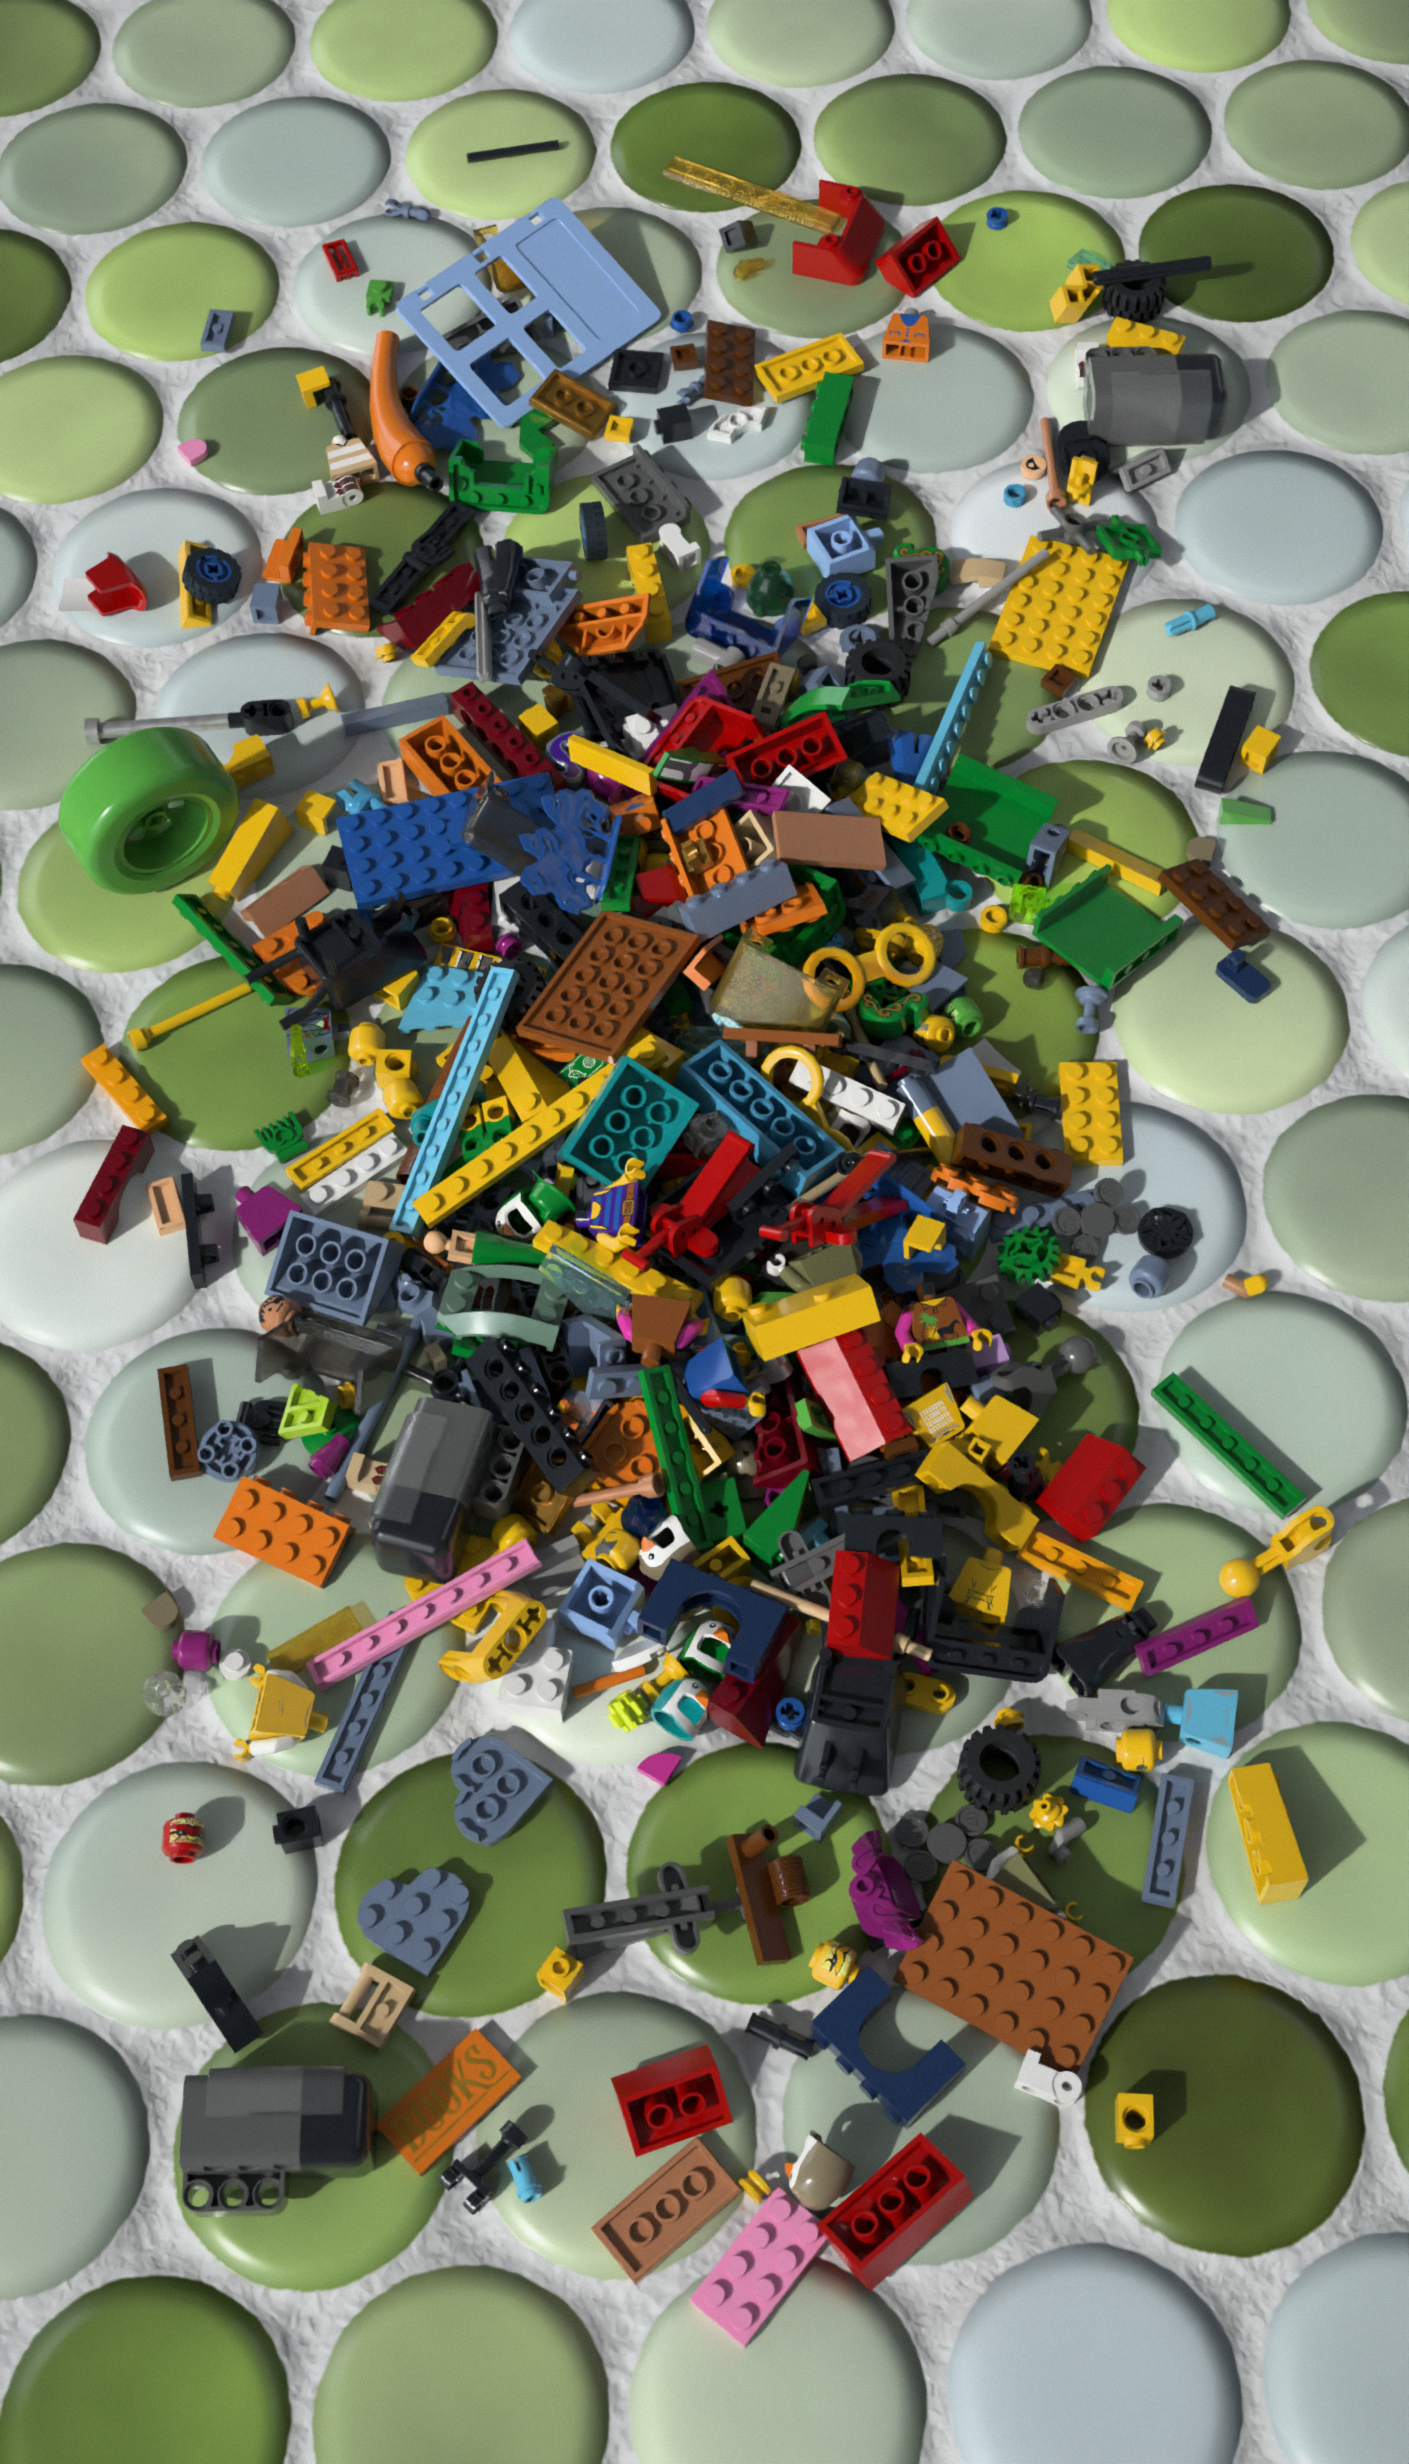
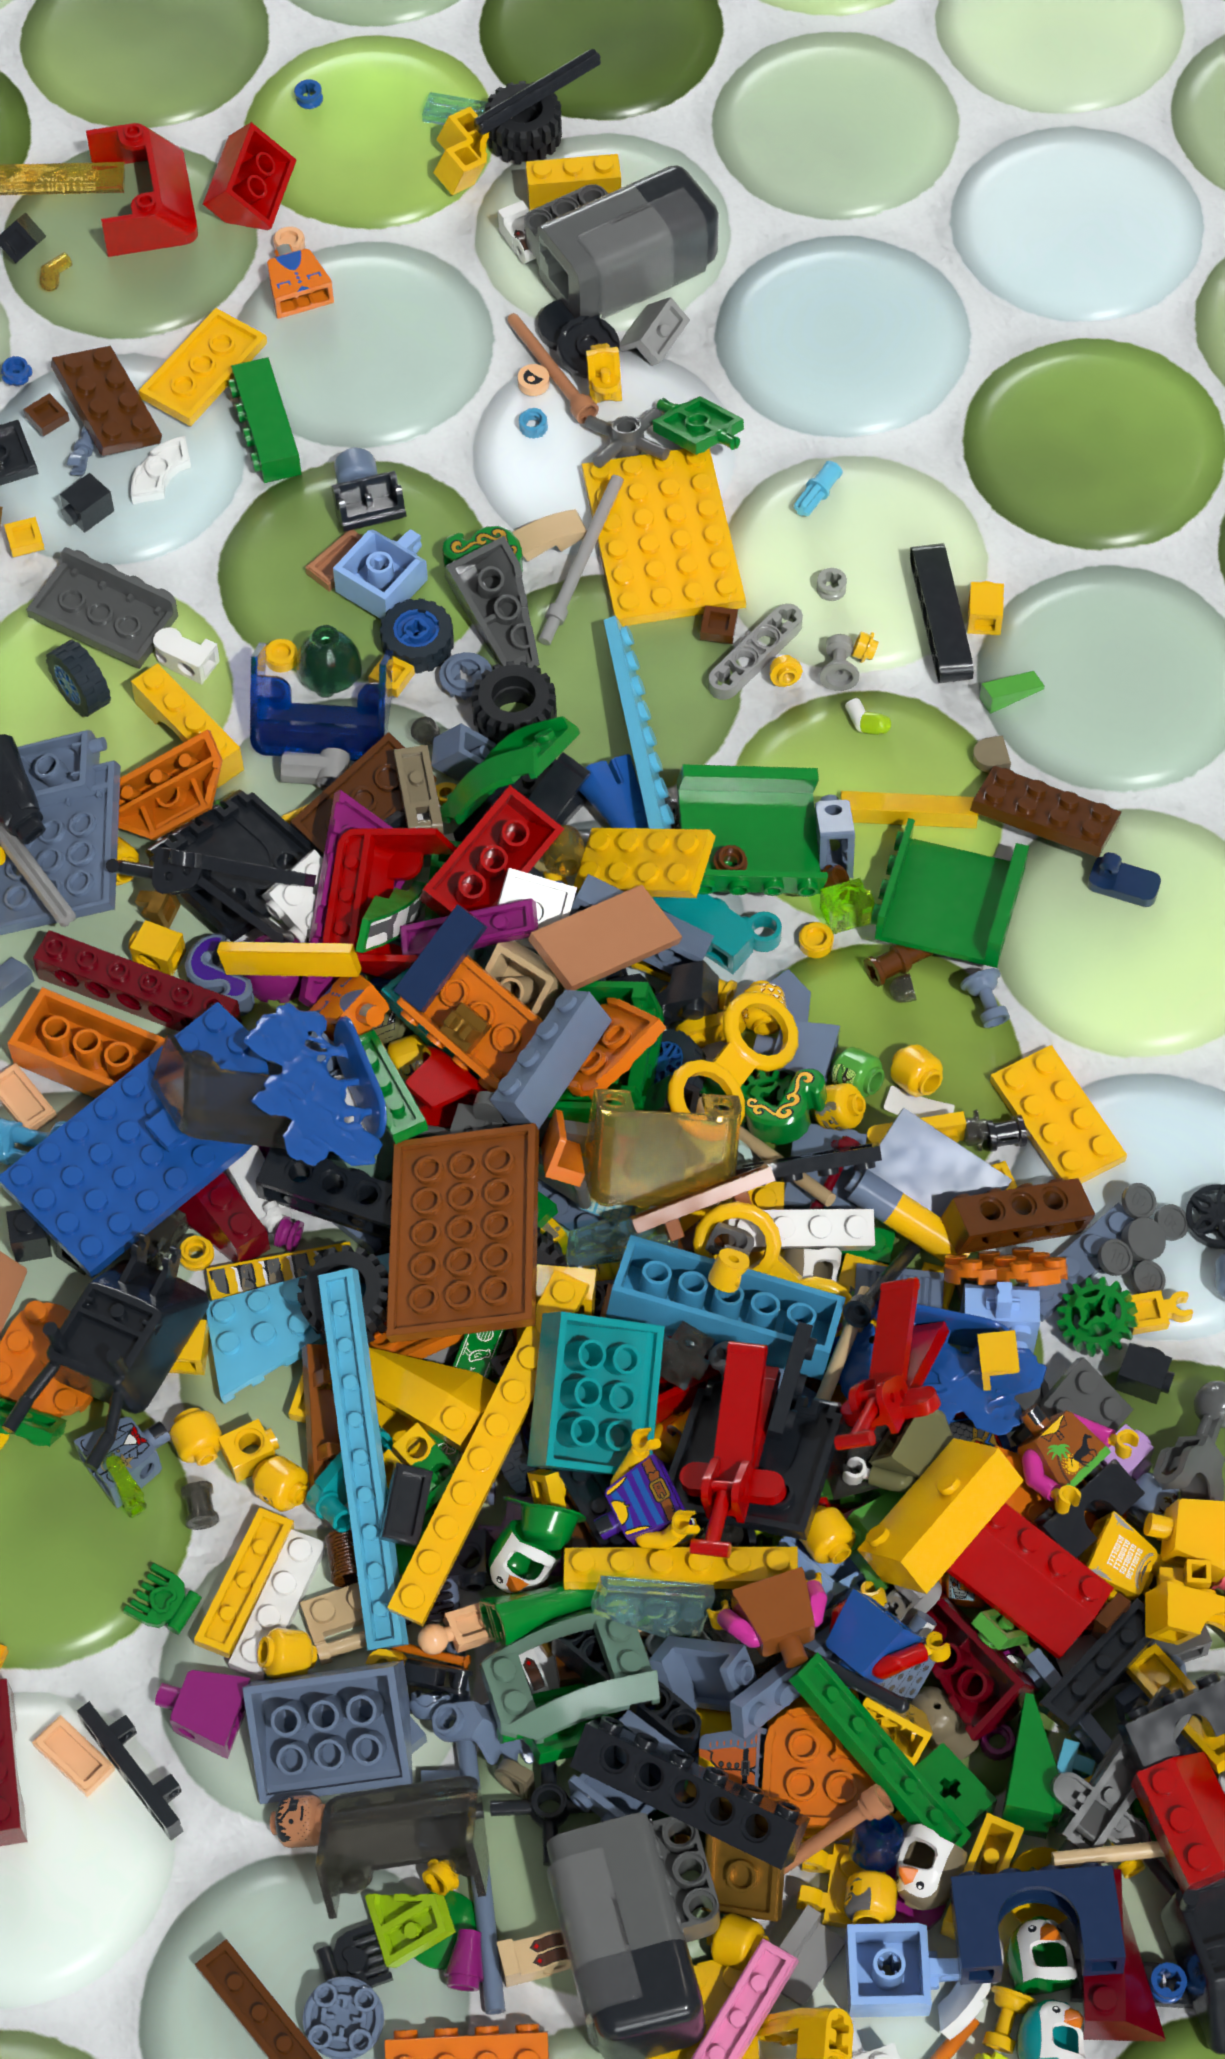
camera: 30 degrees left, 0 degrees up
(337, 1205) = (286, 1653): none -> yellow head
(463, 1143) = (405, 1505): none -> black tile
(774, 1085) = (731, 1259): none -> leg
(924, 307) = (291, 236): none -> light nougat tile
(1006, 1035) = (916, 1070): none -> yellow head
(1089, 726) = (785, 671): none -> yellow plate
(1125, 790) = (867, 721): none -> lime arm

